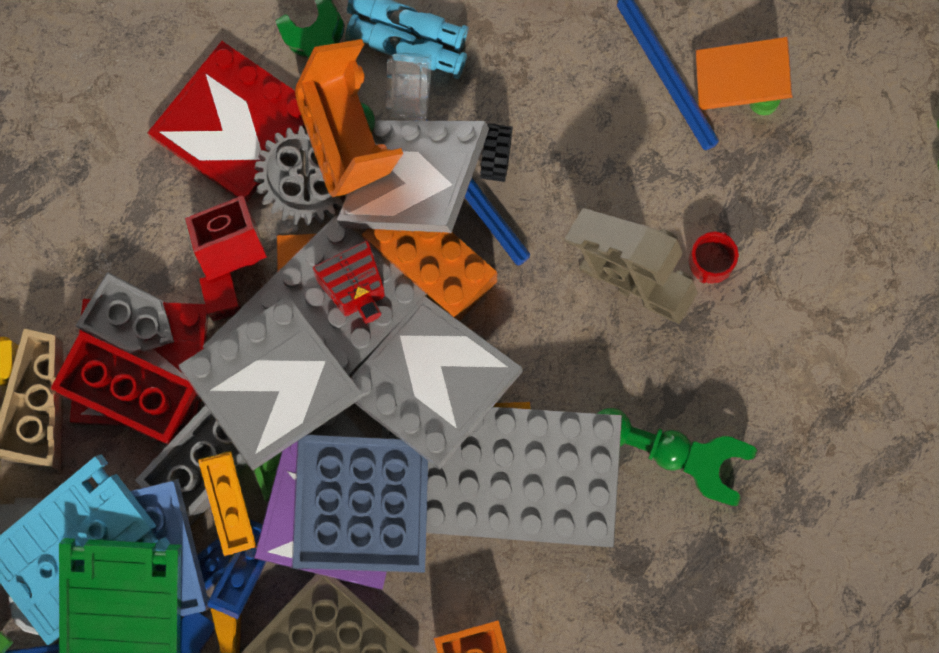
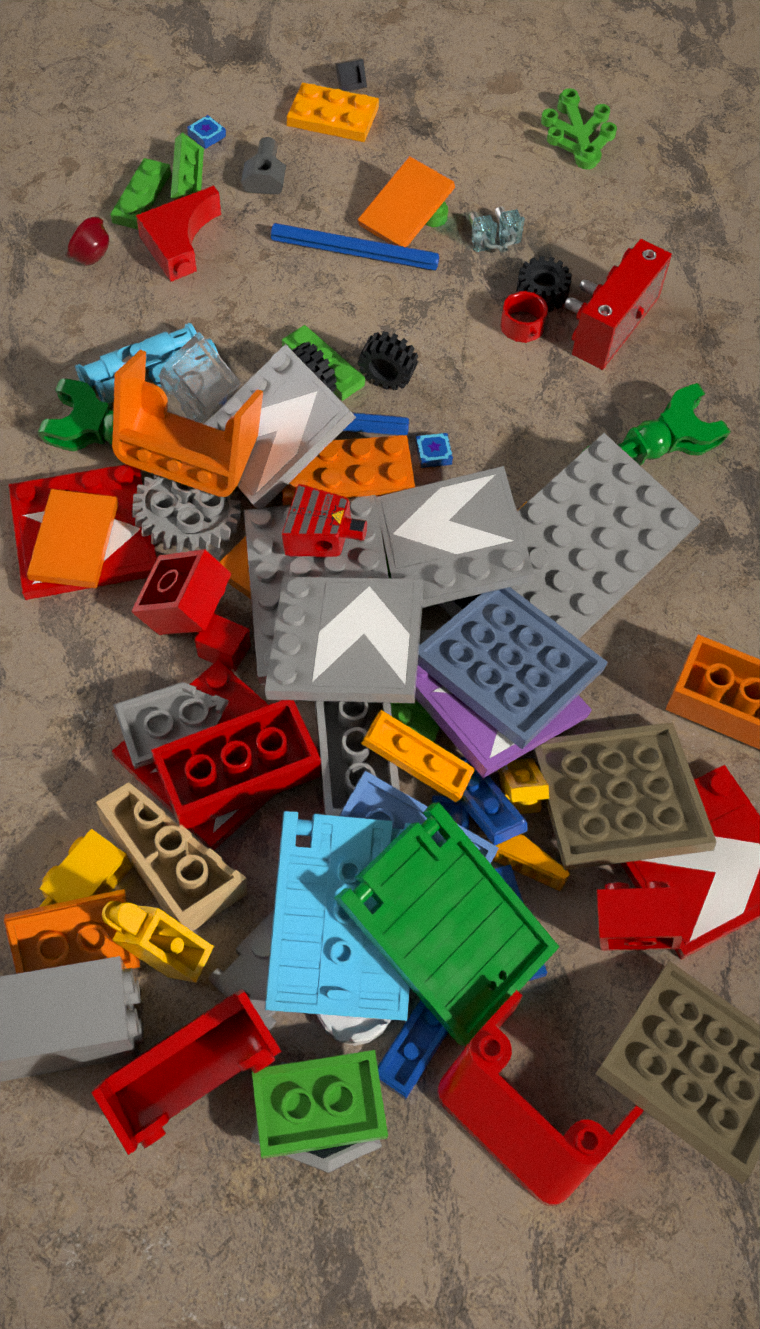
camera: 55 degrees left, 15 degrees down
(213, 125) = (73, 538): none -> orange tile
(279, 587) = (524, 785): none -> yellow slope
(519, 297) = (434, 450): none -> blue tile
(529, 148) = (347, 377): none -> bright green plate
(561, 197) = (375, 358): none -> black tyre
(634, 261) = (480, 343): dark tan wedge -> none
(768, 227) = (546, 272): none -> black tyre
(773, 158) = (485, 230): none -> clear light blue piece
(790, 322) = (618, 303): none -> red piece

